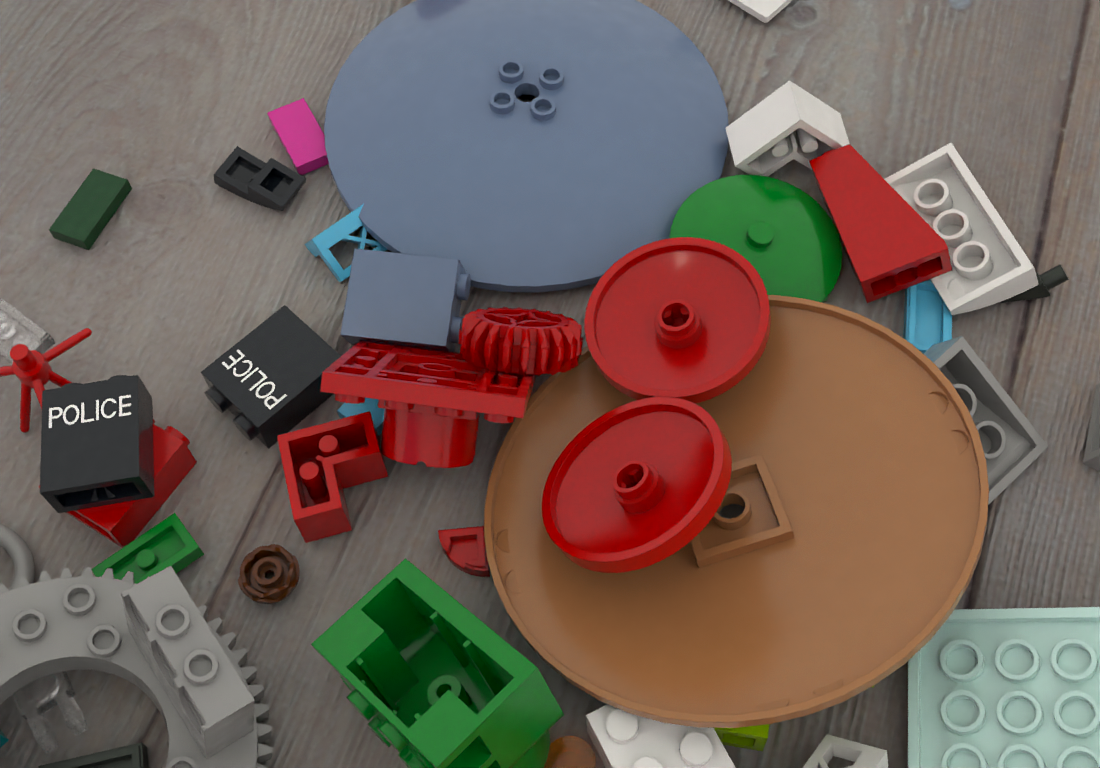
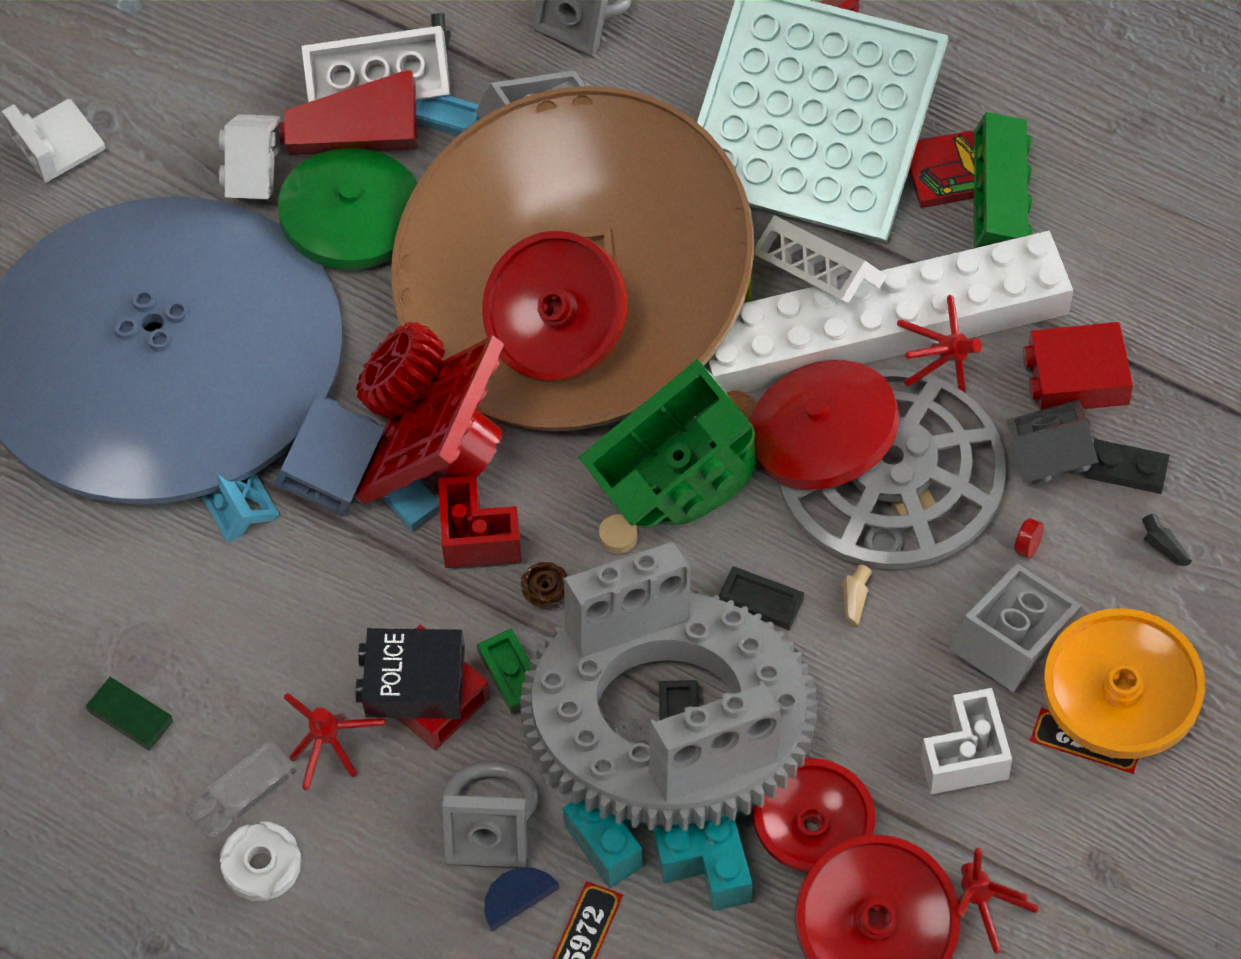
camera: 80 degrees left, 0 degrees up
(259, 182) = (147, 569): black slope -> none
(271, 377) = (367, 564): black brick -> none
(300, 136) = (104, 530): dark pink tile -> none
(466, 549) = (557, 452): red tile -> none
(678, 320) = (418, 258): red dish -> none

